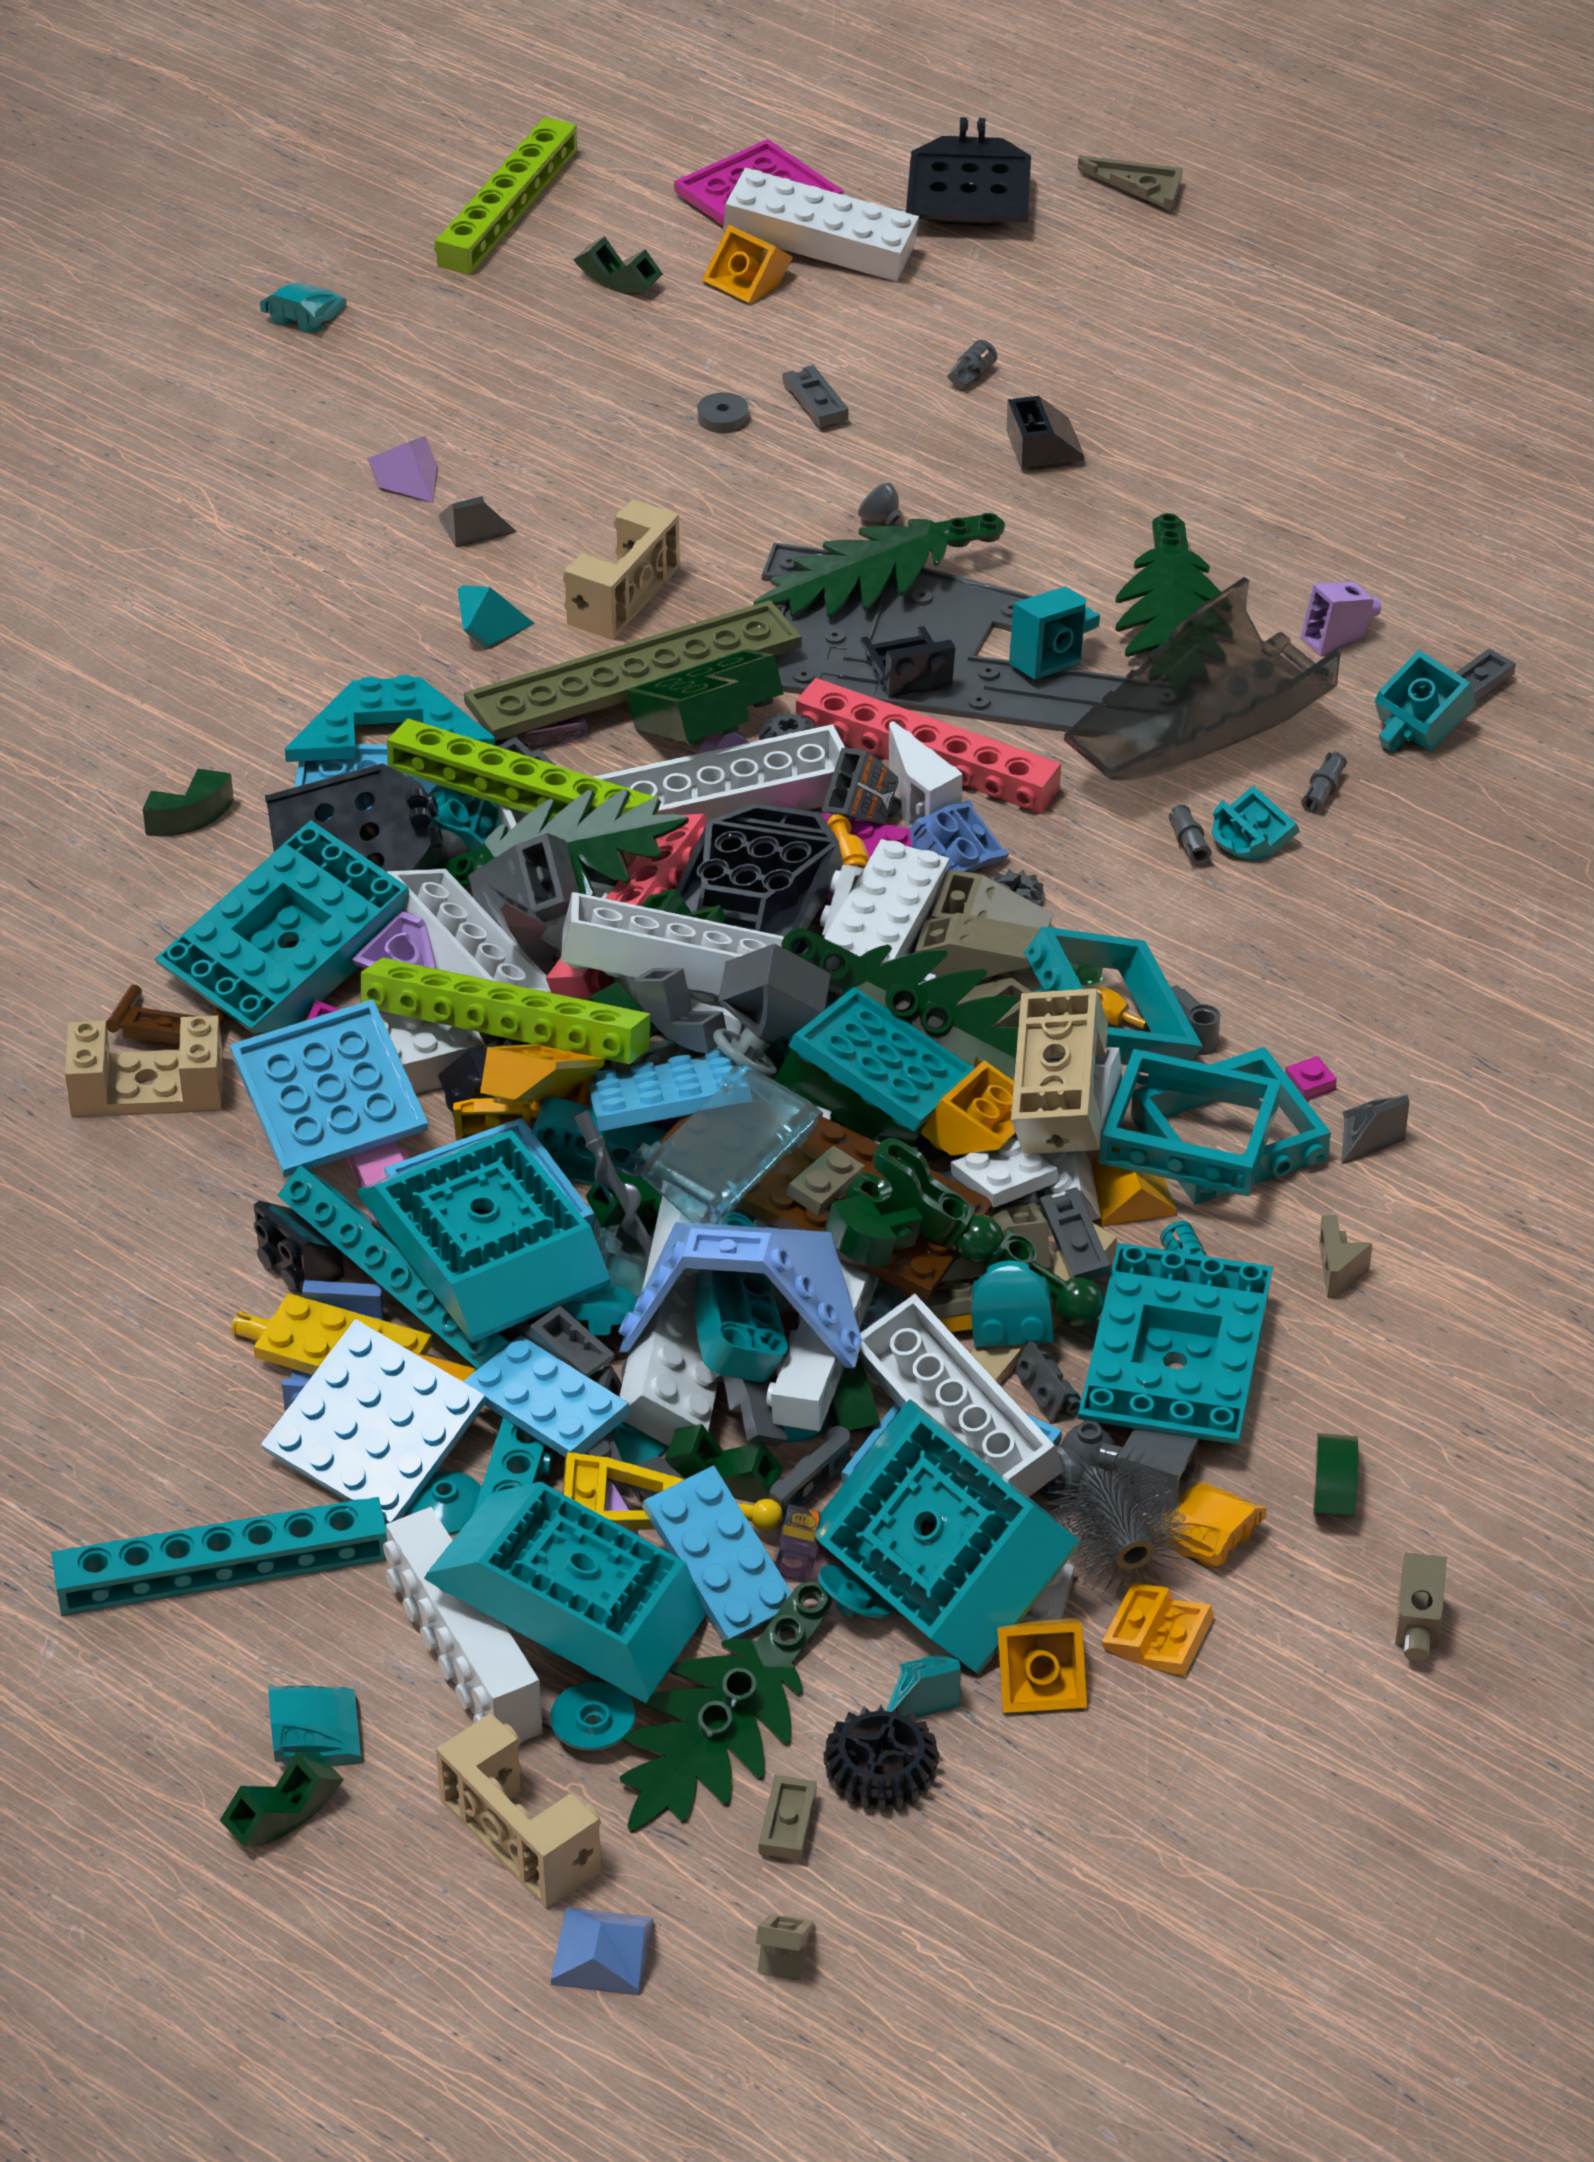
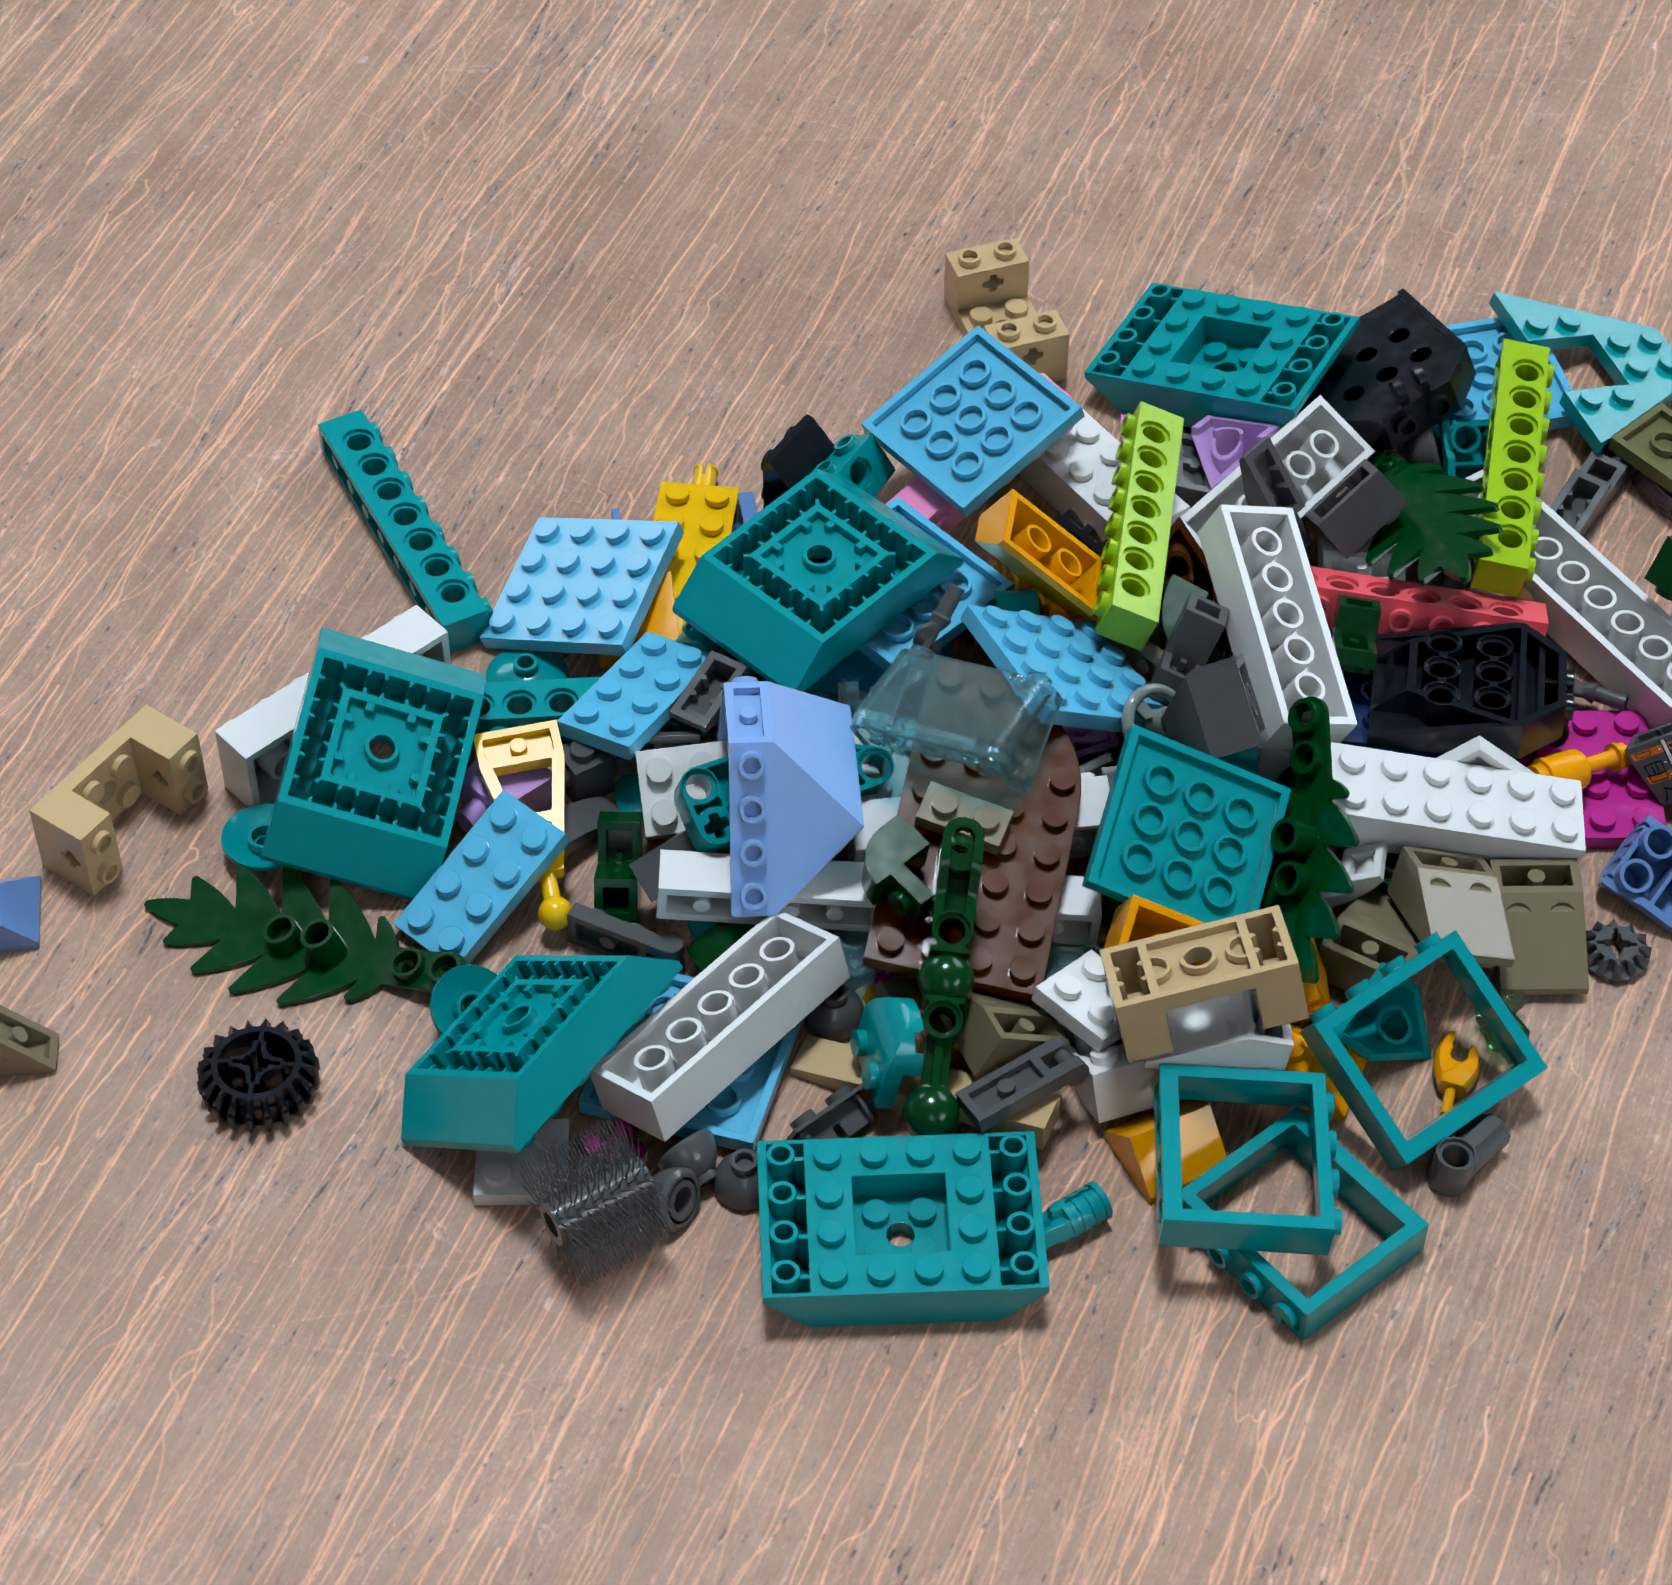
camera: 75 degrees right, 5 degrees up
(149, 1024) = (1076, 308): reddish brown plate -> none
(204, 802) = (1403, 265): dark green brick -> none
(268, 1813) = (114, 643): dark green brick -> none
(314, 1722) = (216, 638): teal slope -> none
(787, 1817) = (171, 1017): dark tan plate -> none
(797, 1541) = (547, 939): clear purple leg -> none
(927, 1686) = (366, 1099): teal slope -> none
(1042, 1665) = (414, 1188): light orange slope -> none
(1158, 1629) = (499, 1290): light orange slope -> none
(1173, 1452) = (718, 1236): dark grey torso -> none
(1217, 1523) = (663, 1309): light orange slope -> none
(1311, 1077) = (1427, 1297): dark pink plate -> none
(1336, 1474) = (750, 1409): dark green brick -> none
(1341, 1261) = (1109, 1367): dark tan slope -> none
(1374, 1126) = (1364, 1373): dark grey slope -> none
(1420, 1604) = (569, 1527): dark tan torso -> none

